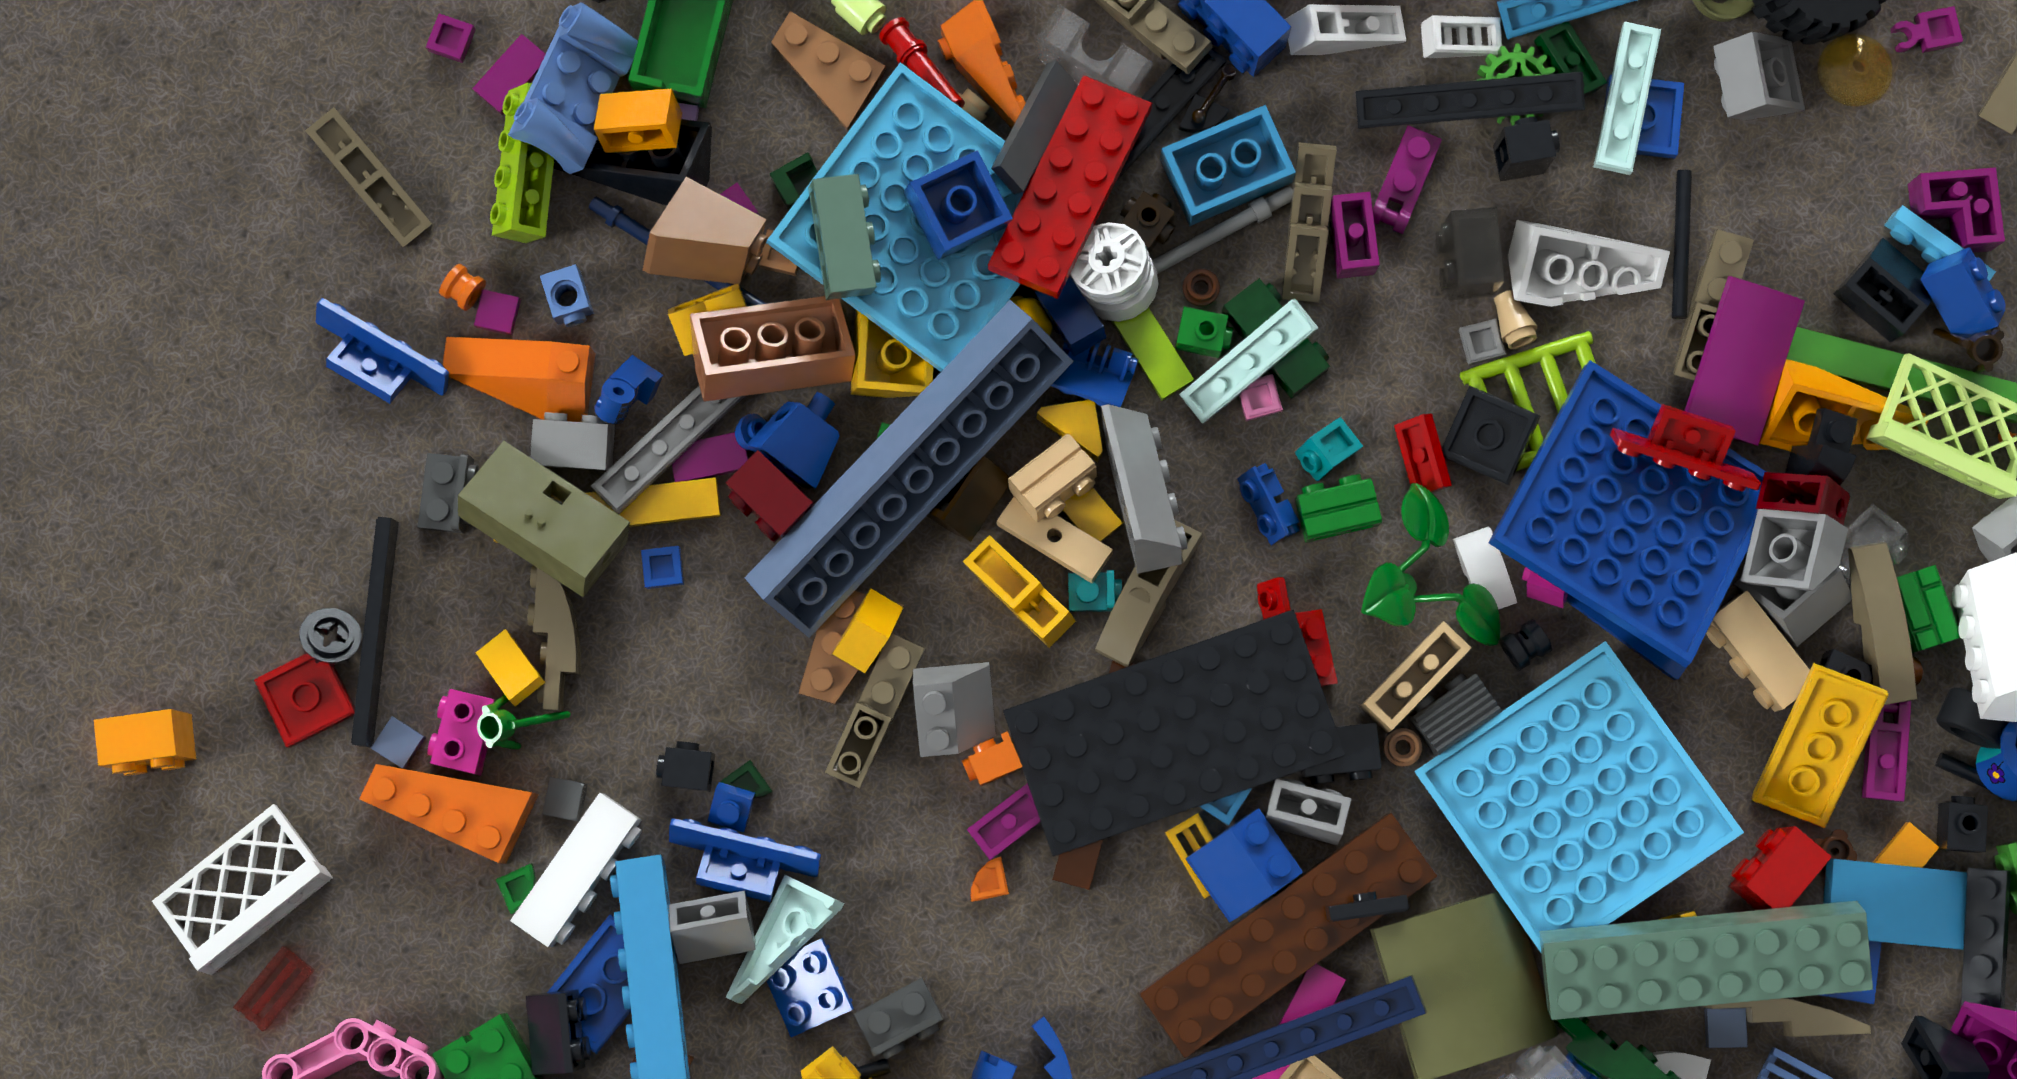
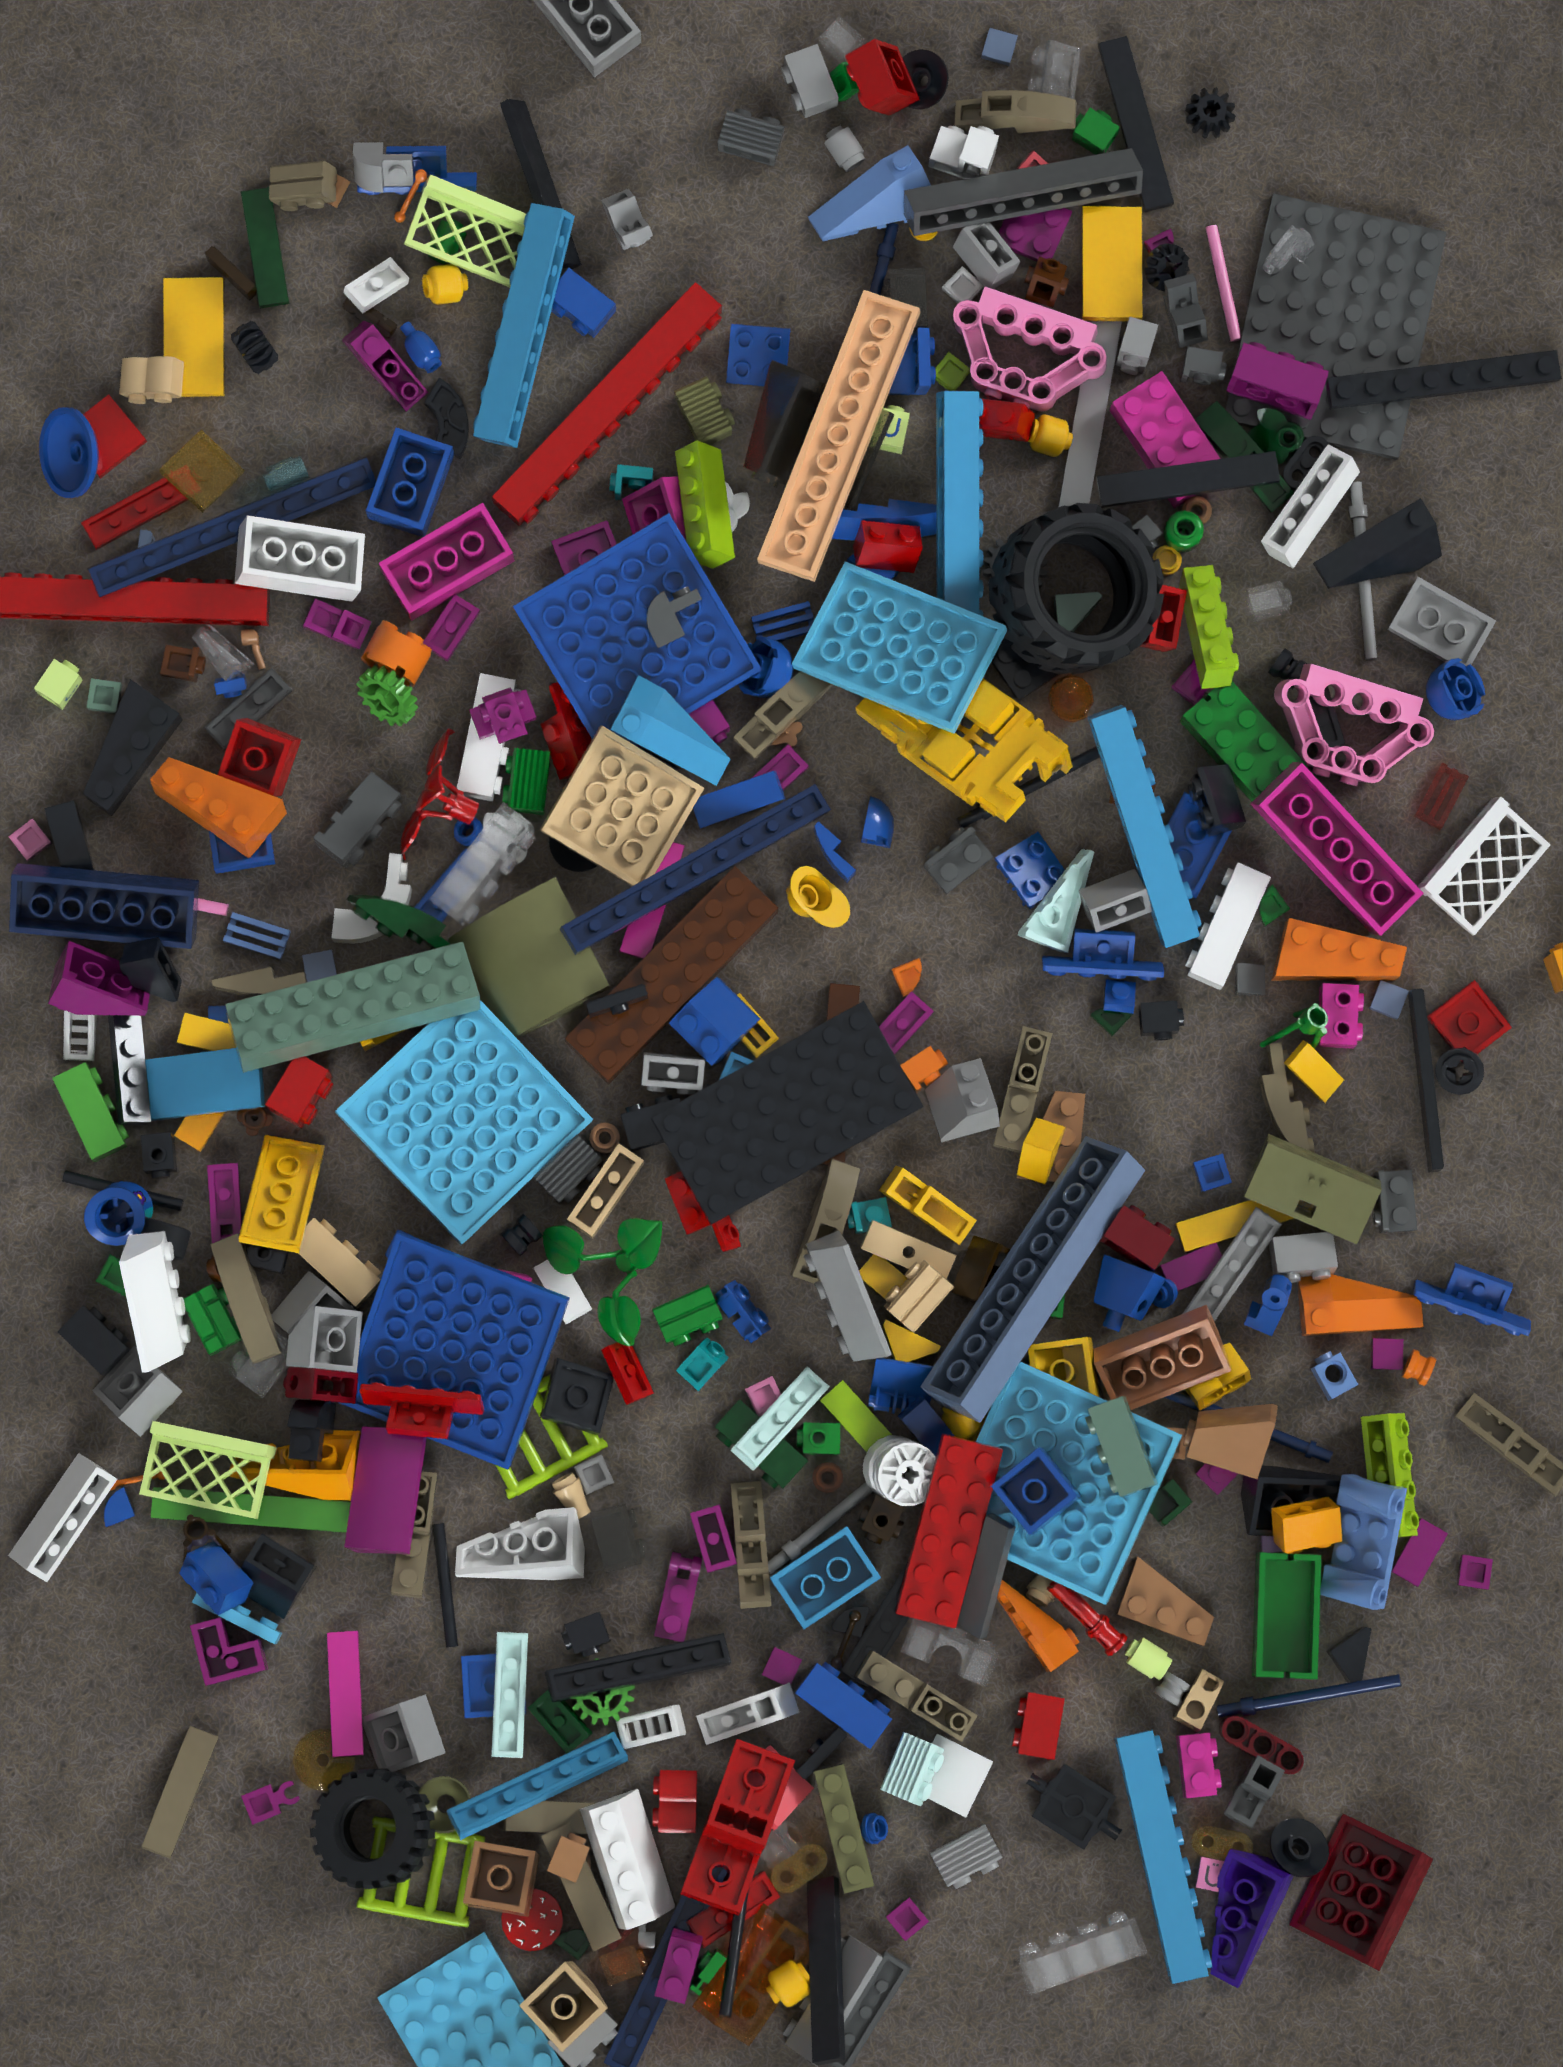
camera: 160 degrees right, 0 degrees up
(419, 940) = (1336, 848): none -> dark pink brick
(1085, 999) = (817, 898): none -> yellow piece
(1295, 78) = (781, 1666): none -> magenta tile
(1821, 137) = (345, 1694): none -> dark pink tile
(1893, 970) = (205, 1033): none -> yellow tile

